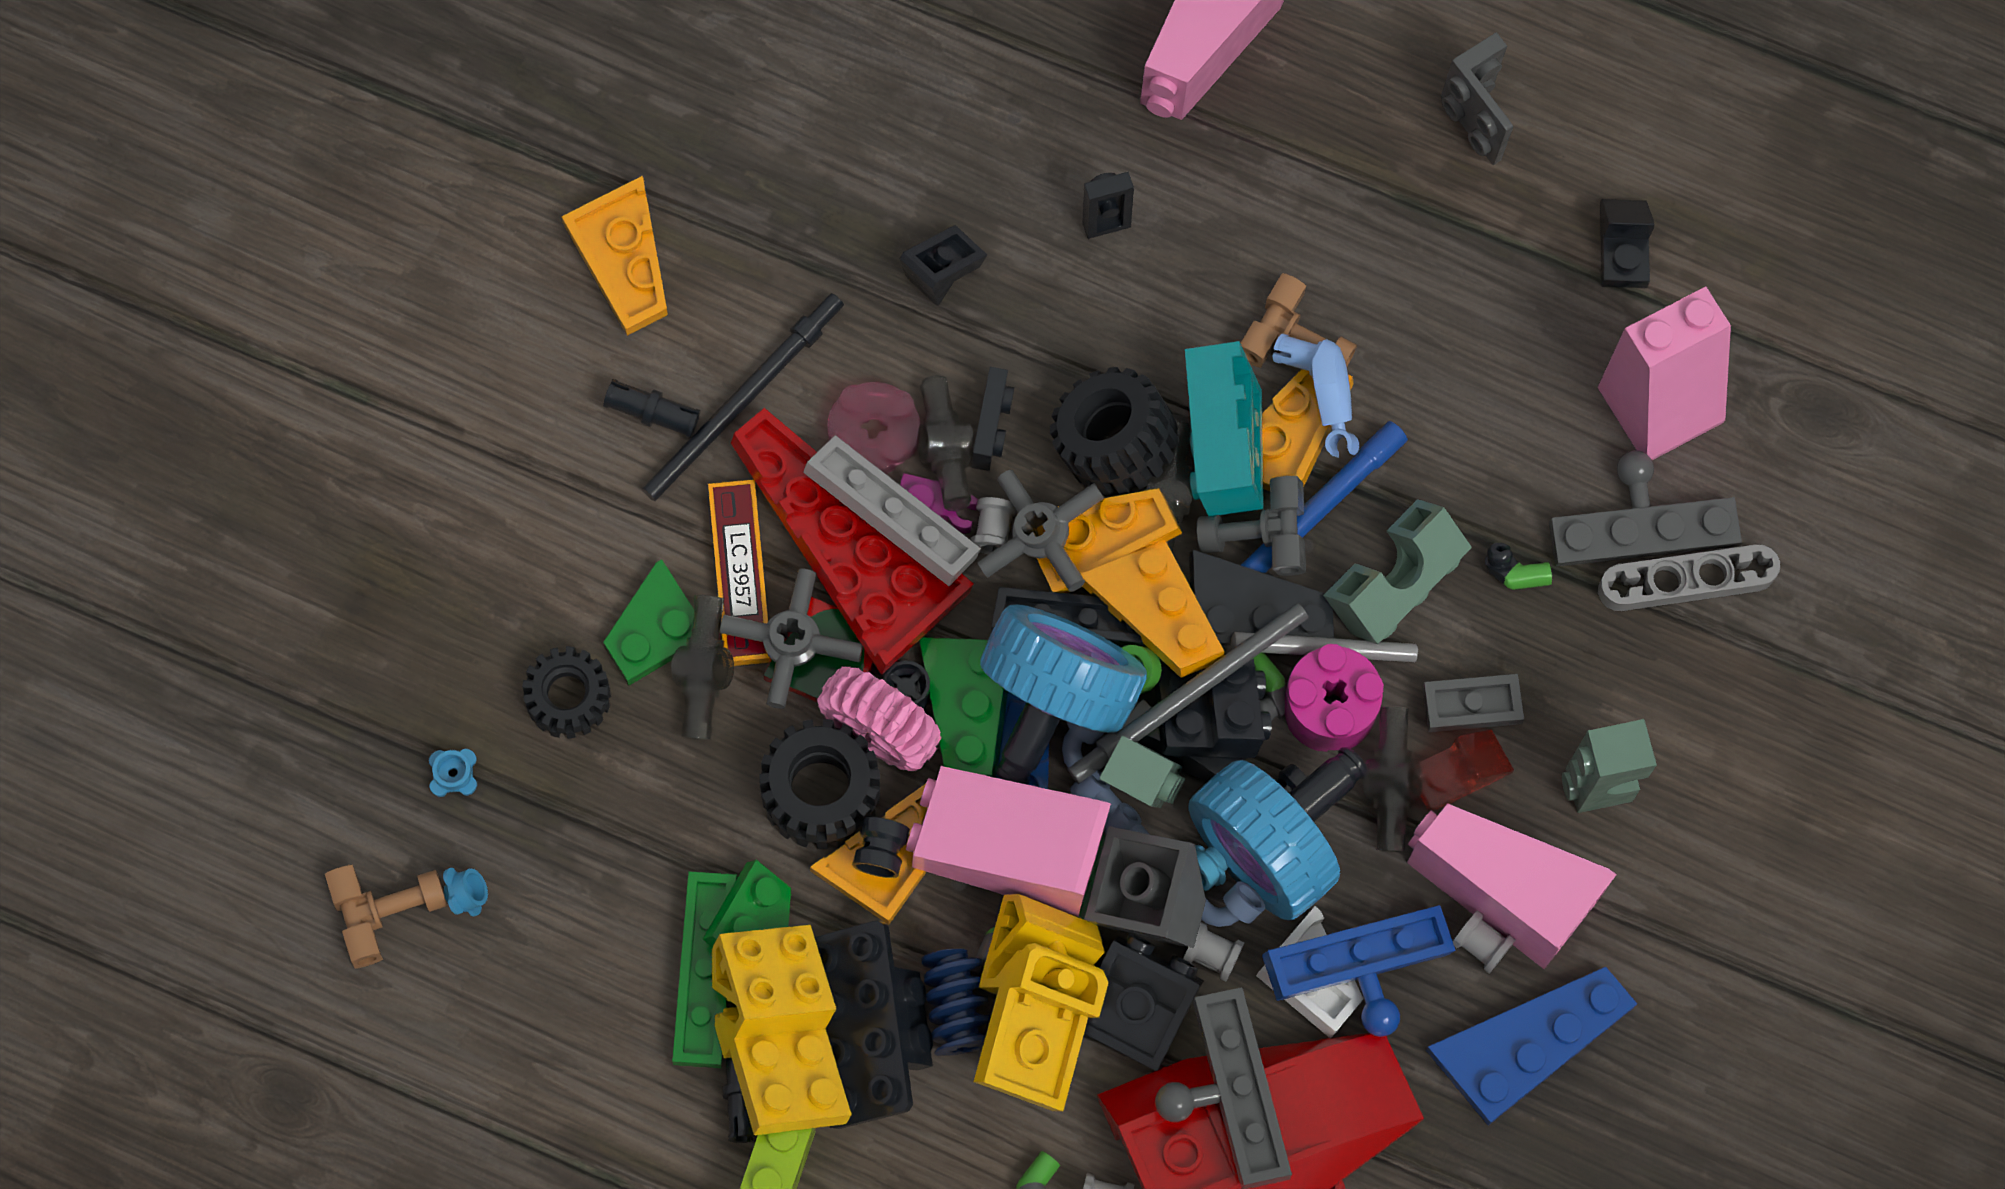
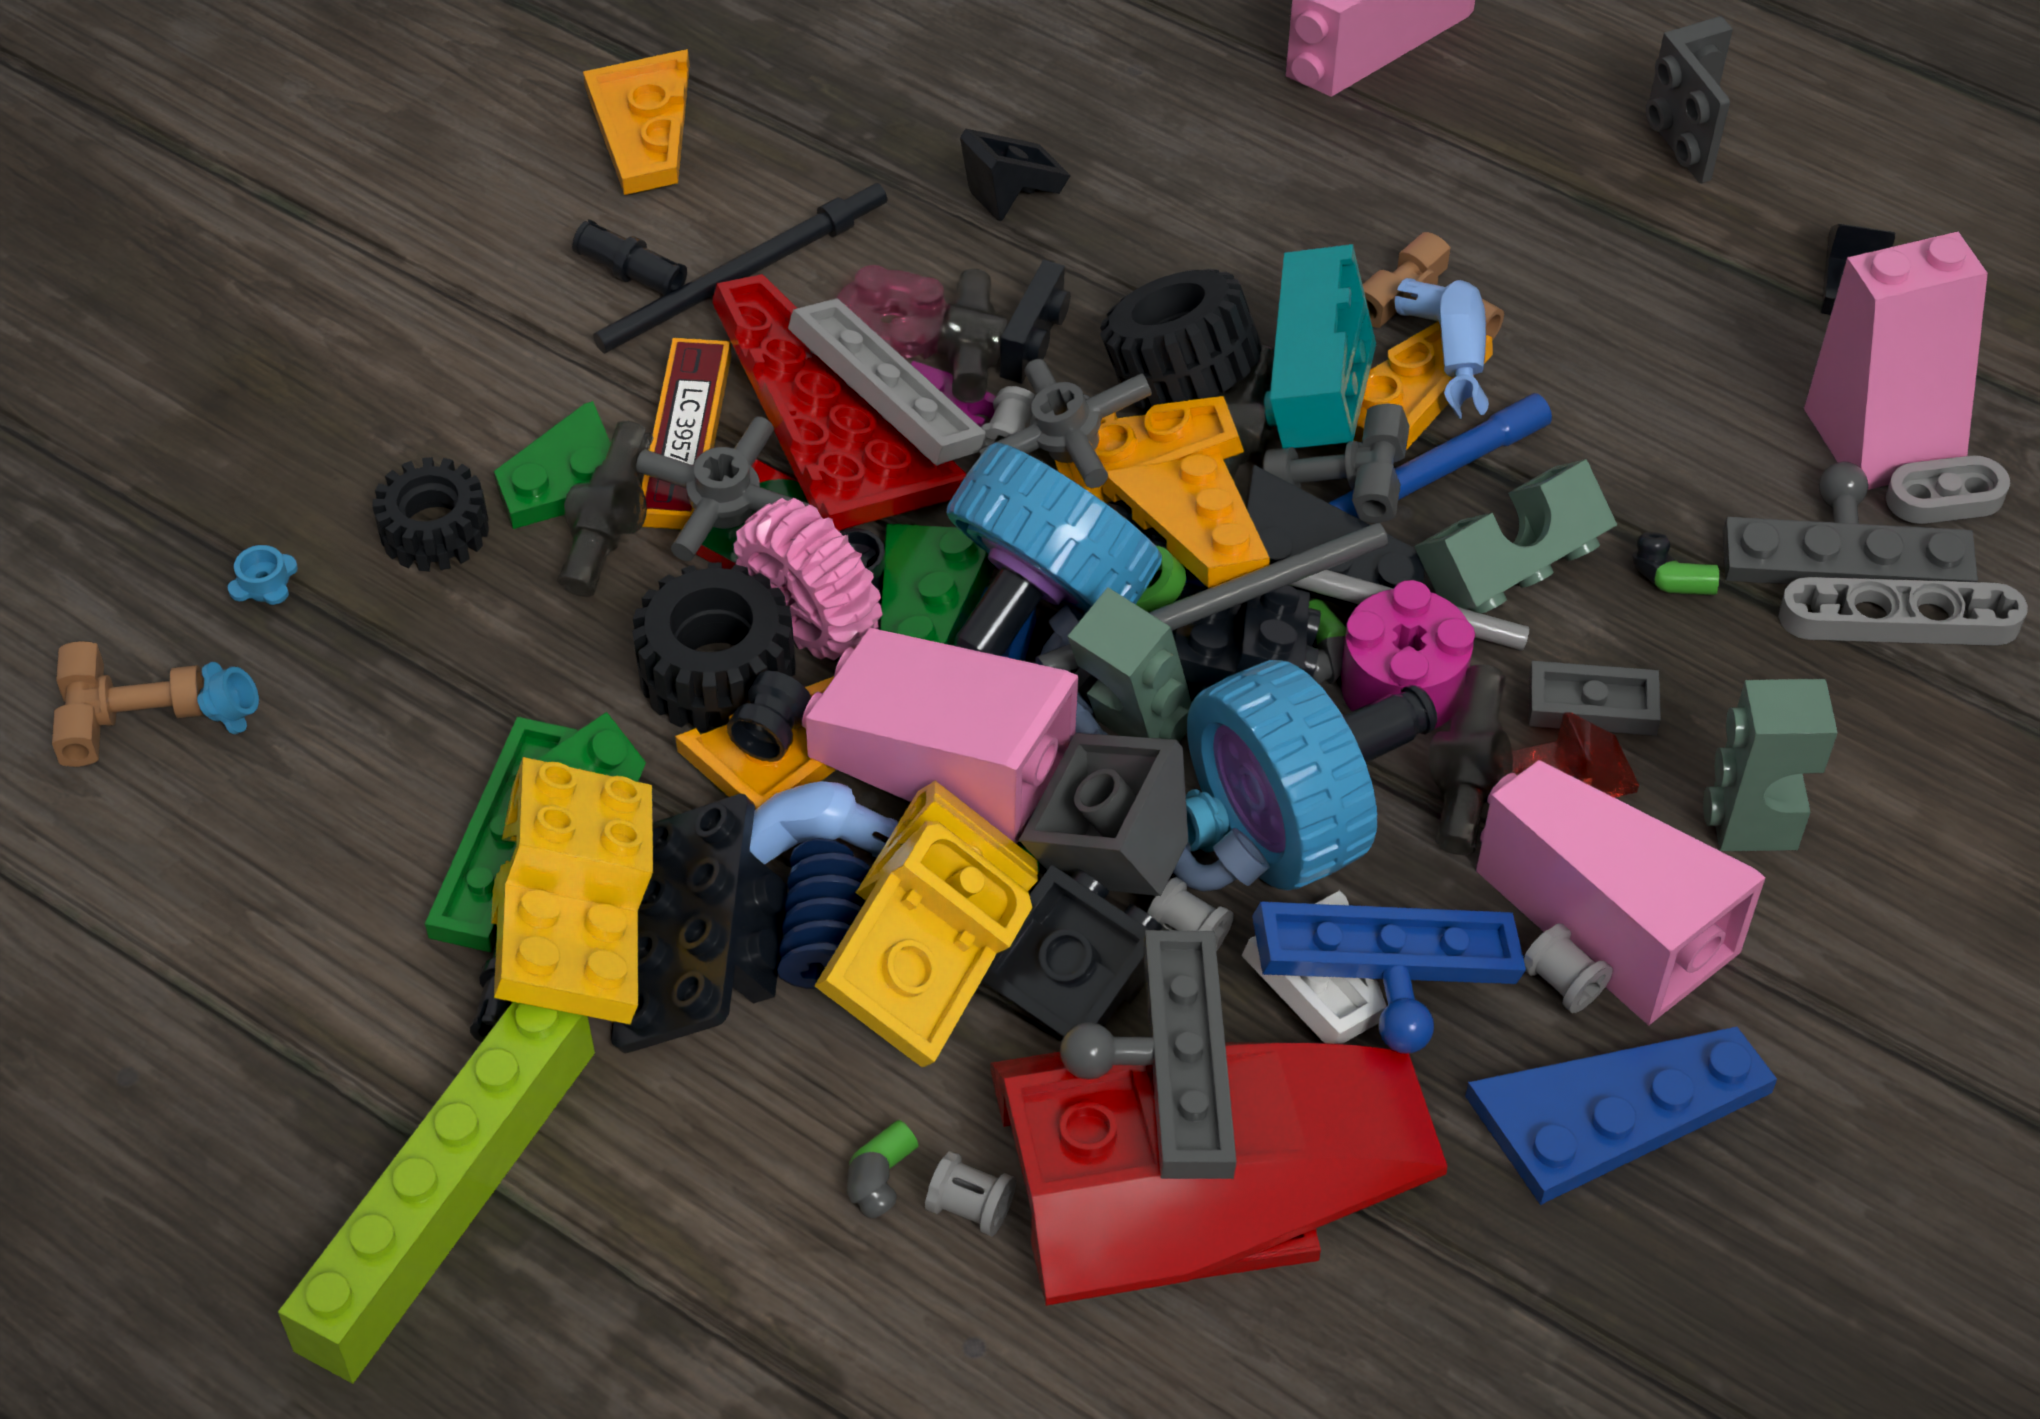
camera: 15 degrees right, 20 degrees down
(934, 921) = (815, 812): none -> light blue arm
(1107, 204) = (1223, 133): black plate -> none
(1710, 458) = (1947, 489): none -> light grey plate

